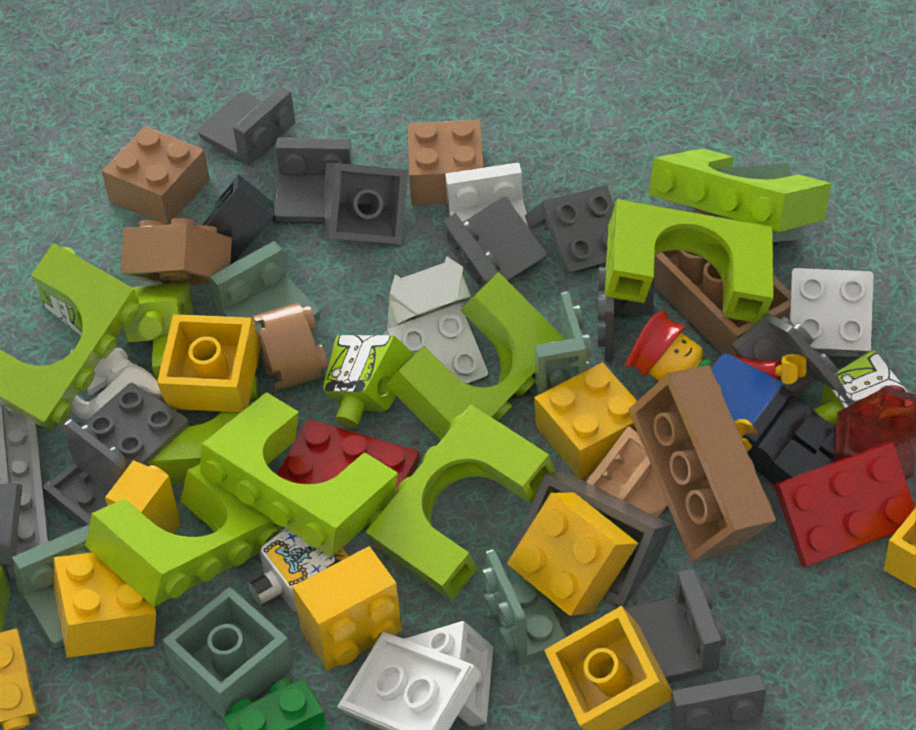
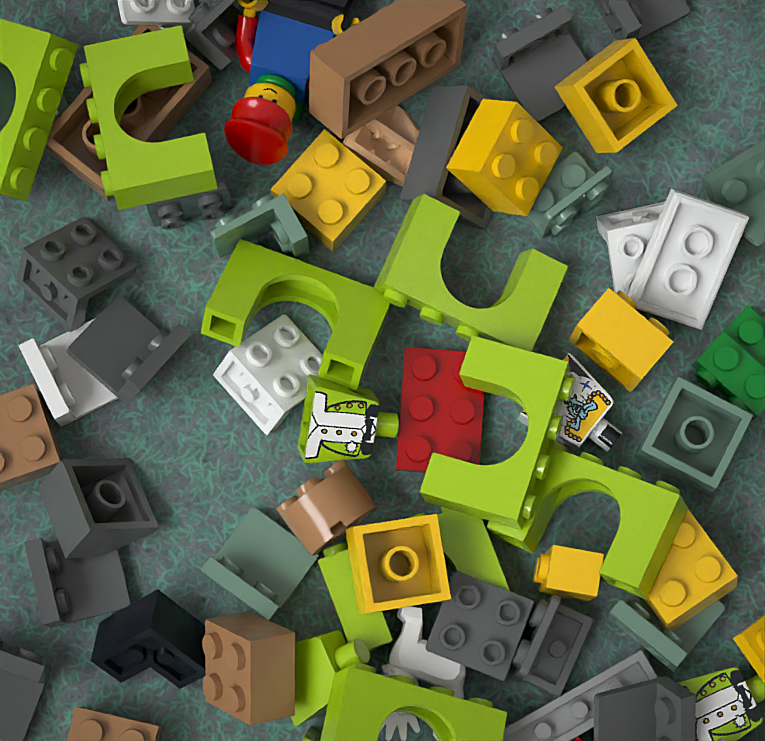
camera: 115 degrees left, 30 degrees up
(426, 292) = (237, 385): white slope -> none

